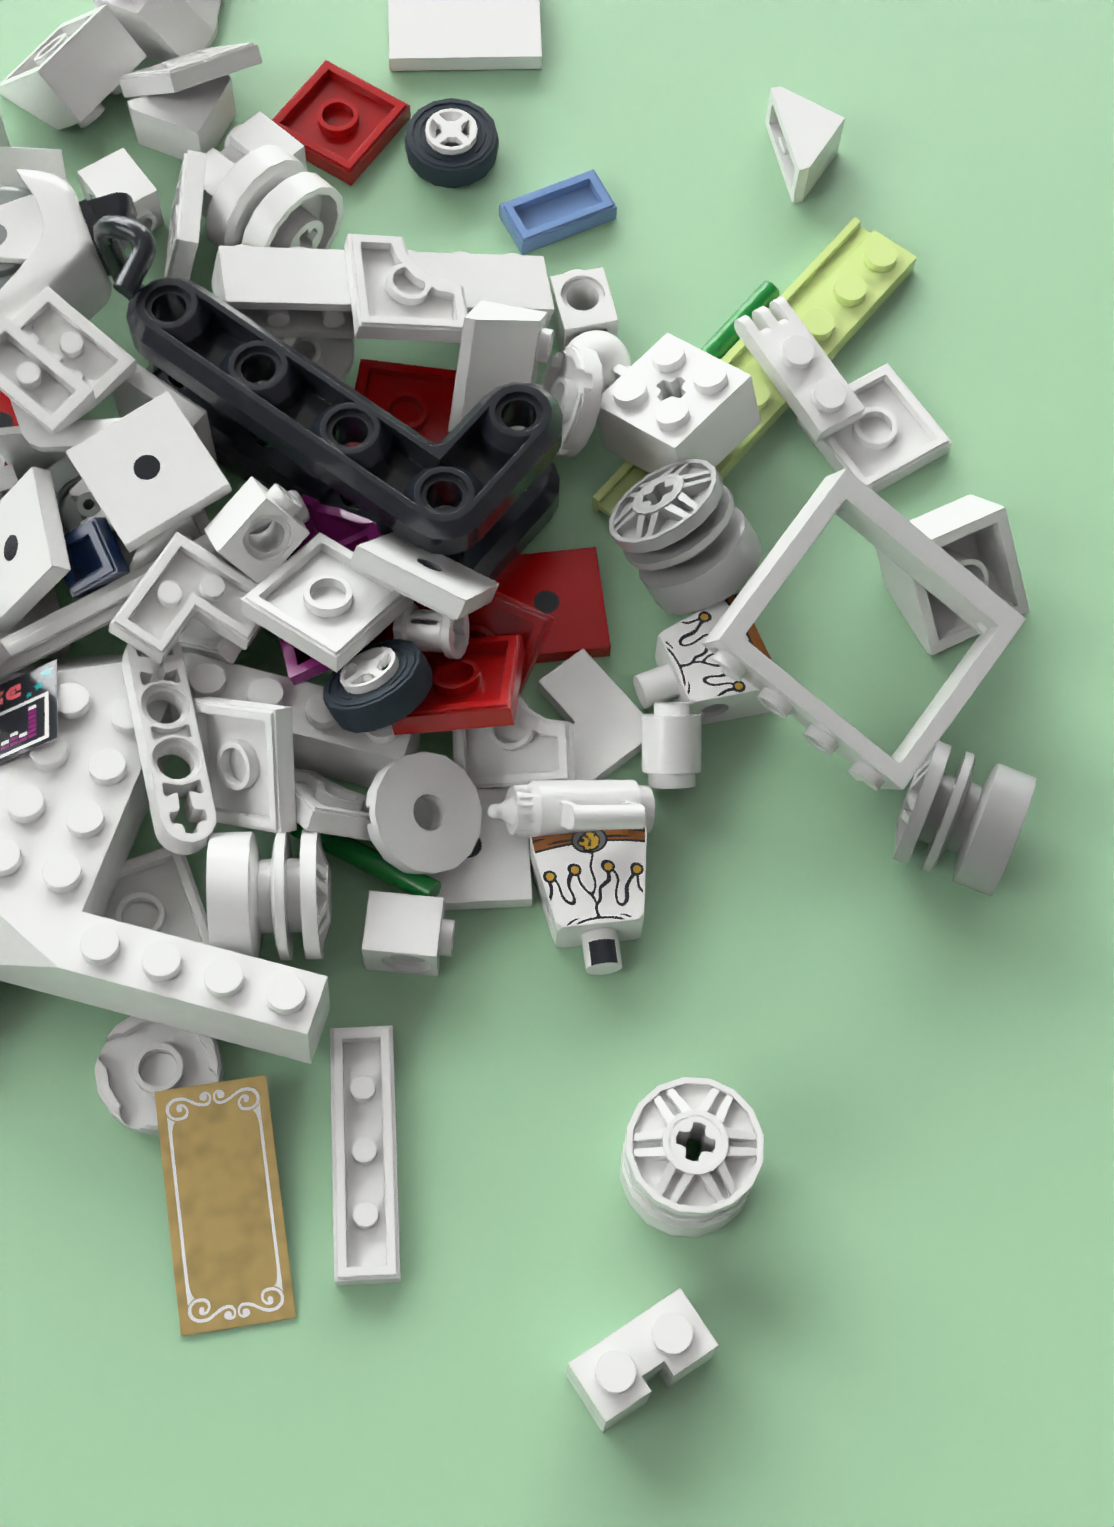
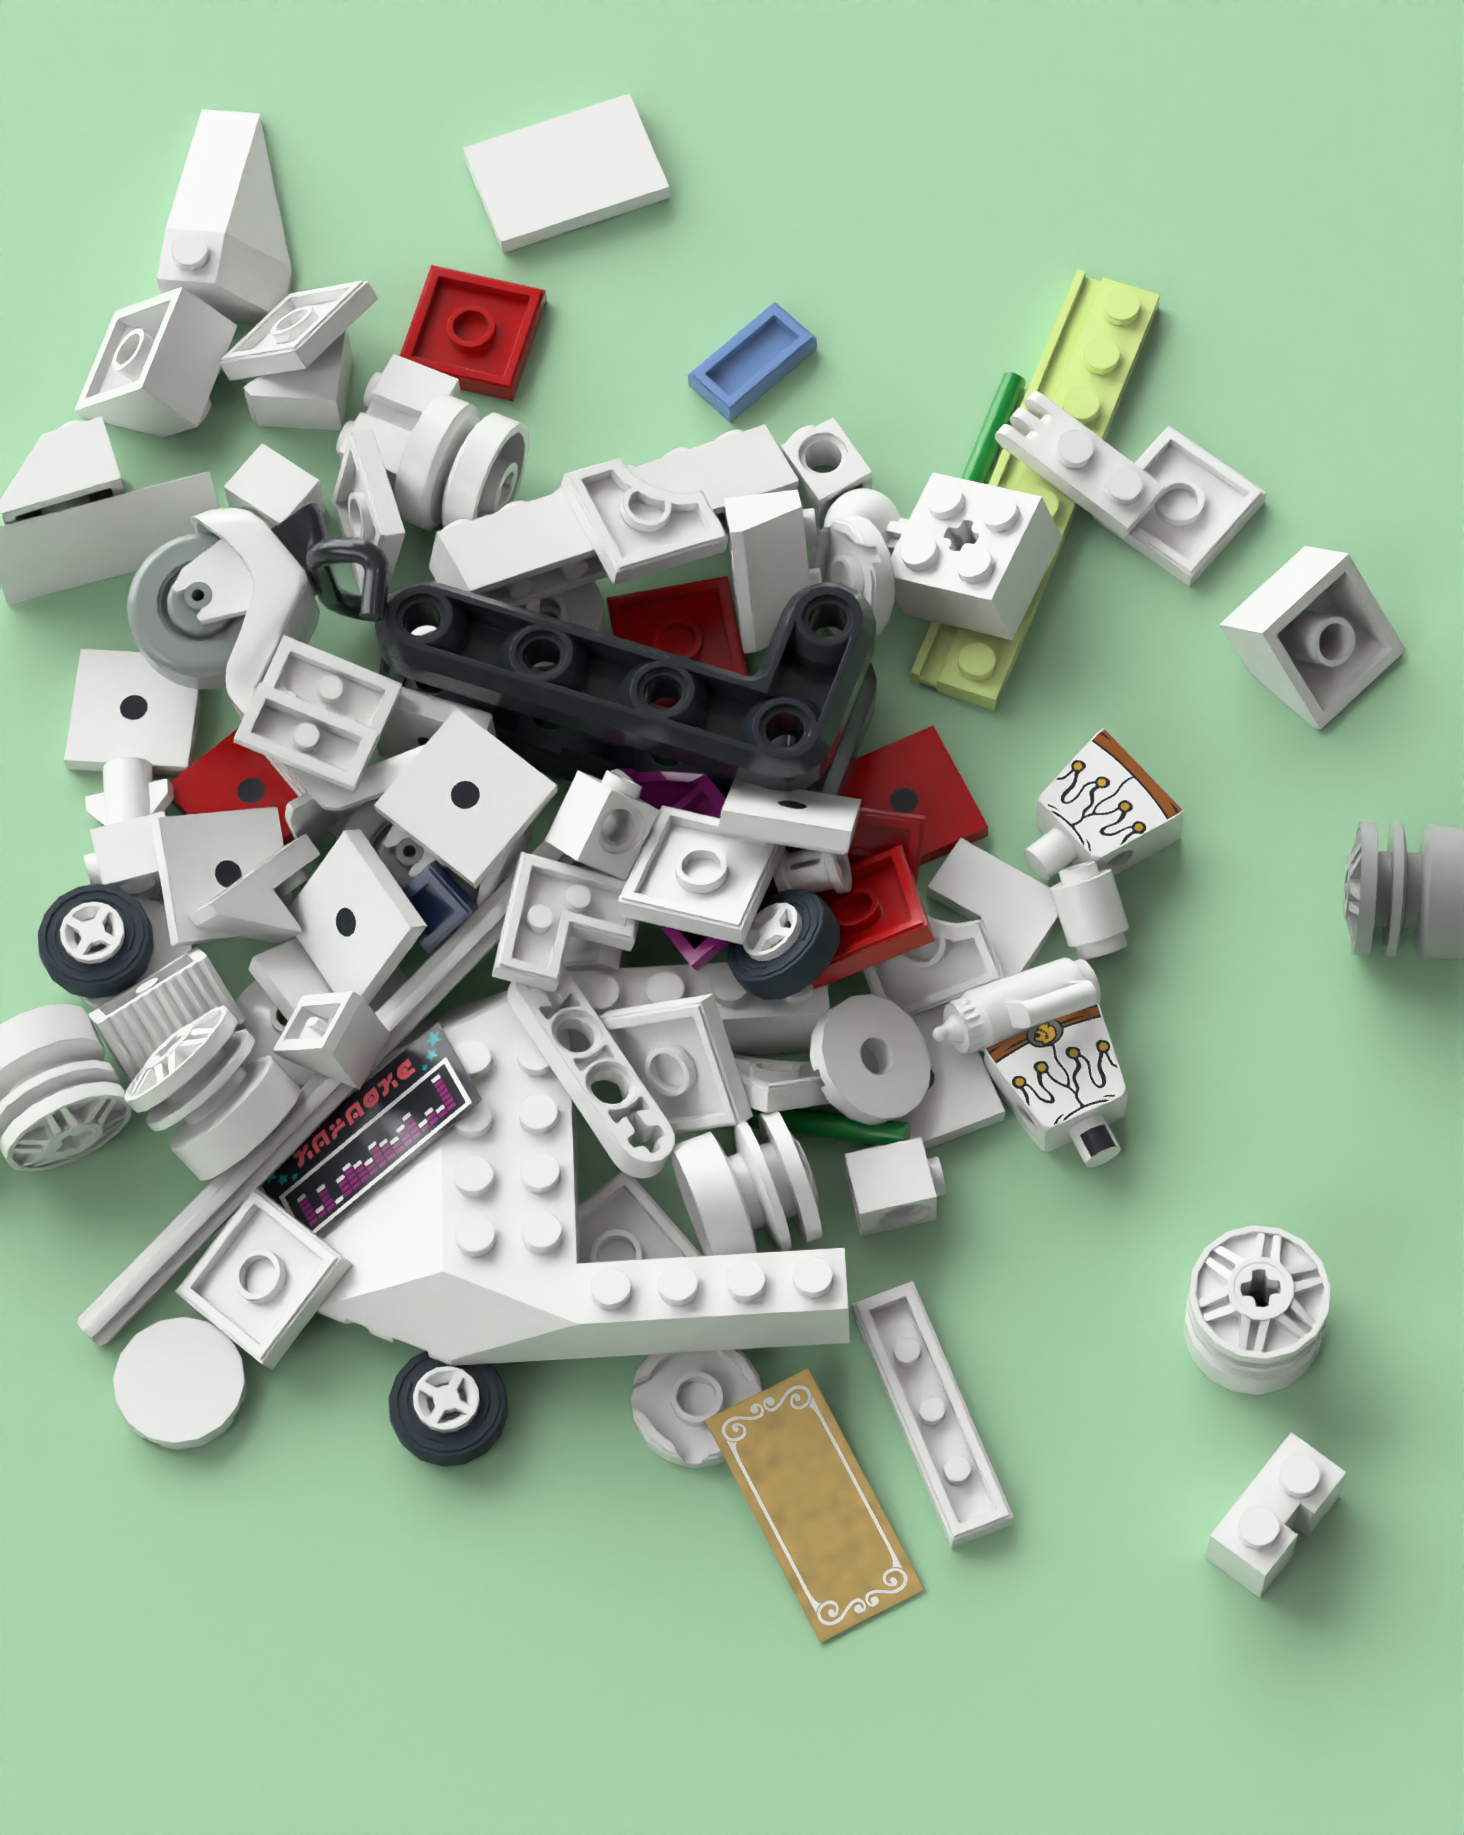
camera: 10 degrees left, 0 degrees up
(451, 143) = (602, 298): black wheel -> none
(685, 536) = (1030, 688): light grey wheel -> none
(803, 139) = (989, 196): white slope -> none
(920, 558) = (1284, 638): white window -> none

